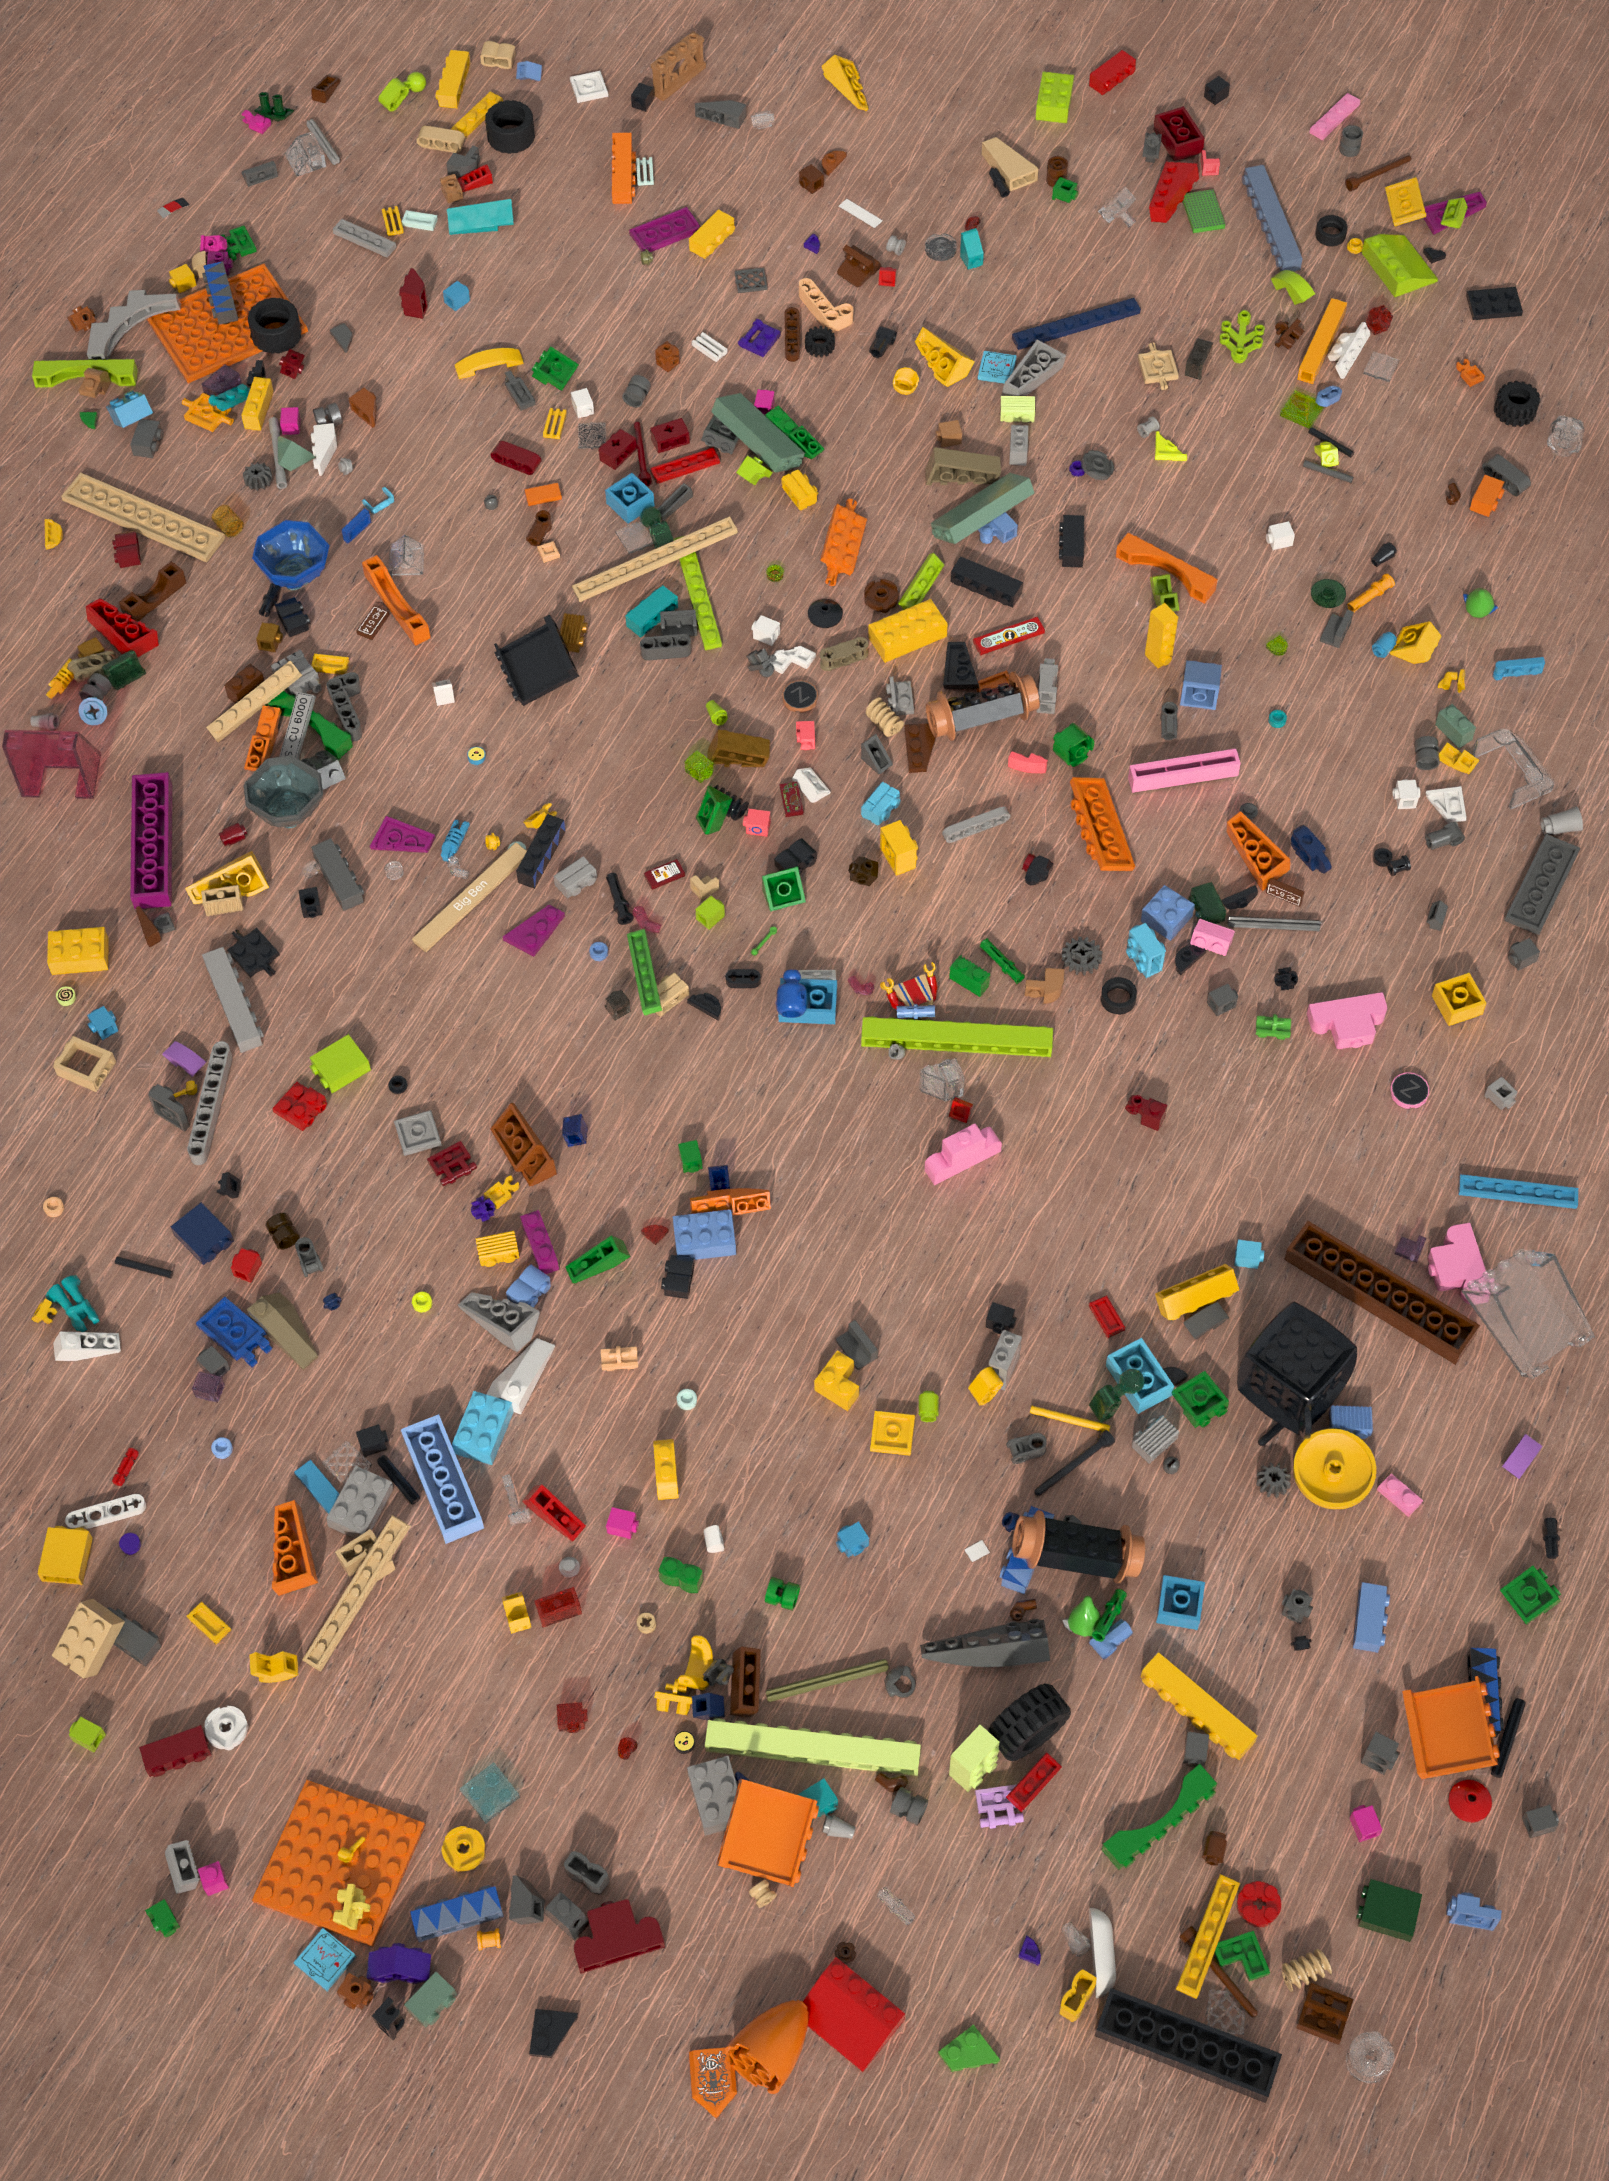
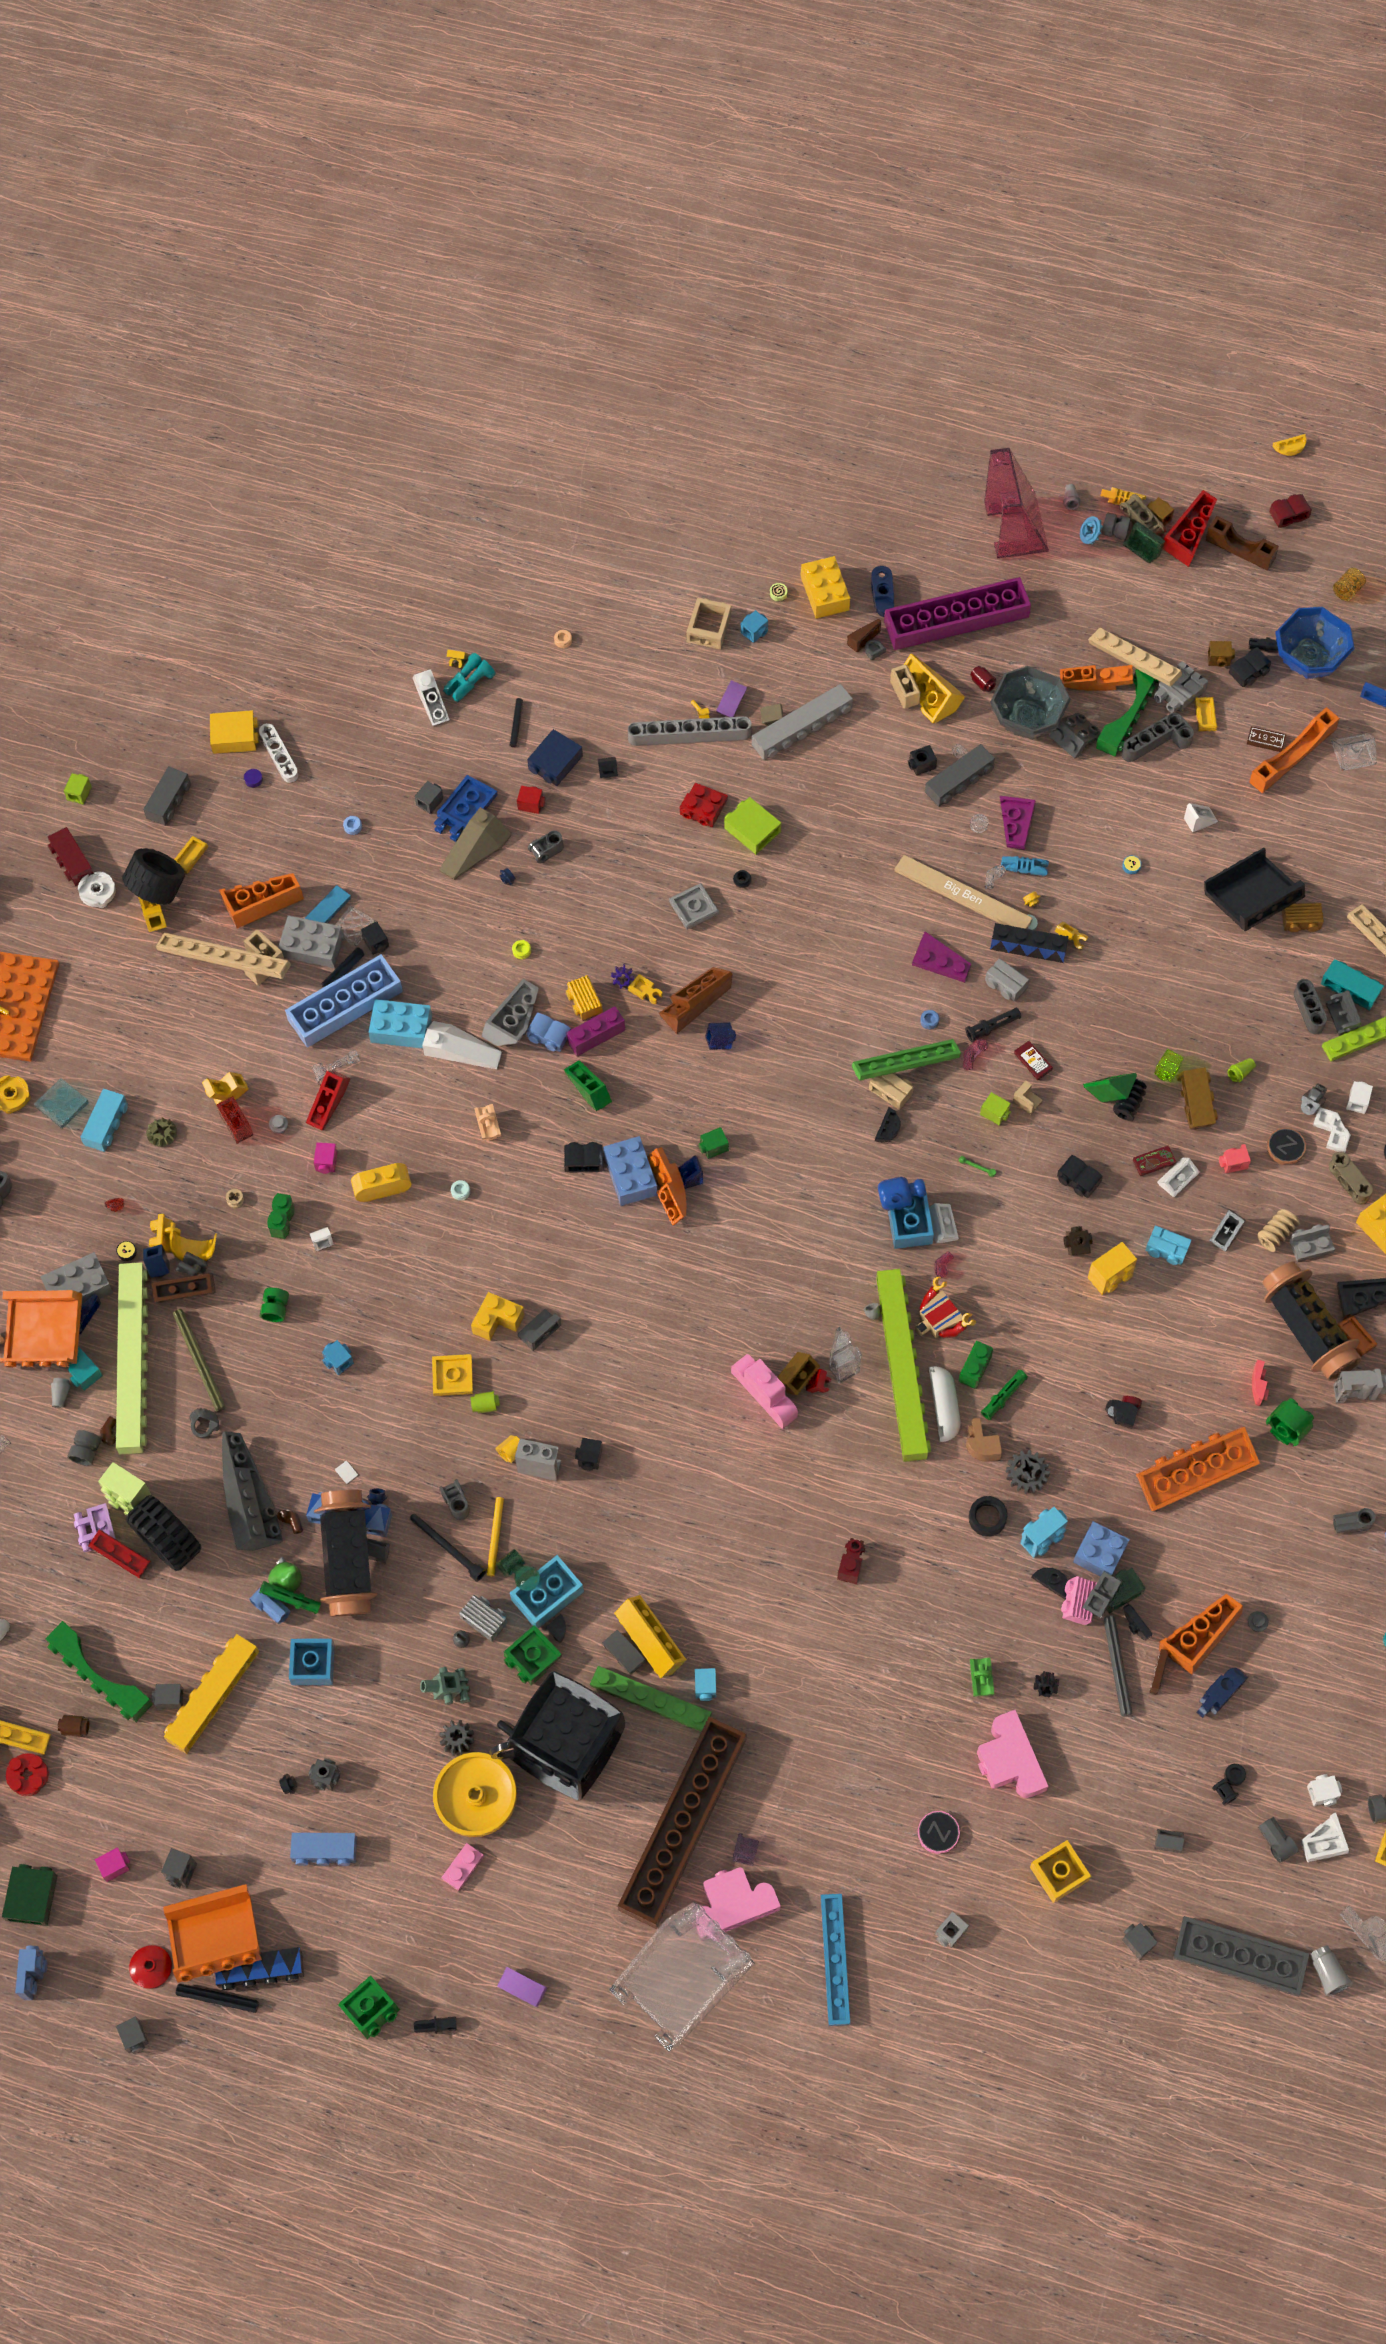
camera: 80 degrees right, 5 degrees up
(88, 1638) = (154, 764): tan piece -> none
(91, 901) = (882, 589): none -> dark blue piece
(125, 1466) = (322, 756): red axle -> none
(143, 517) = (1333, 514): tan plate -> none
(167, 1107) = (674, 697): dark grey plate -> none
(208, 1387) = (405, 799): clear purple panel -> none
(214, 1024) = (771, 714): none -> dark tan slope
(238, 1652) = (153, 876): none -> black tyre
(243, 683) = (1157, 645): reddish brown brick -> none
(253, 952) = (858, 728): black plate -> none
(282, 1231) = (568, 818): dark brown wheel -> none
(298, 725) = (1115, 701): light grey tile -> none
(449, 1158) = (671, 938): dark red plate -> none
(523, 1747) = (104, 1120): none -> medium azure brick
(544, 1698) = (158, 1139): none -> olive gear
(571, 1717) = (136, 1153): clear red brick -> none
(616, 1000) = (870, 1043): clear smoke brick -> none
(654, 1233) = (627, 1128): clear red tile -> none
(743, 978) = (923, 1155): black beam -> none
(757, 822) = (1114, 1133): coral brick -> none
(783, 889) = (1038, 1171): green slope -> none
(915, 1011) = (916, 1316): medium blue pin -> none
(918, 746) = (1249, 1272): reddish brown wing -> none
(949, 1119) = (798, 1372): none -> pearl gold brick
(976, 824) = (1166, 1343): light grey beam -> none
(999, 1011) = (945, 1403): none -> white brick
(1107, 1316) = (613, 1556): red tile -> none
(1184, 770) = (1289, 1543): bright pink brick -> none
(1214, 914) = (1102, 1594): none -> dark grey slope
(1221, 1479) = (447, 1686): none -> sand green piece
(1222, 999) = (1006, 1622): dark grey brick -> none
(1254, 1306) = (650, 1698): none -> bright green plate
(1352, 1419) = (533, 1807): medium blue brick -> none

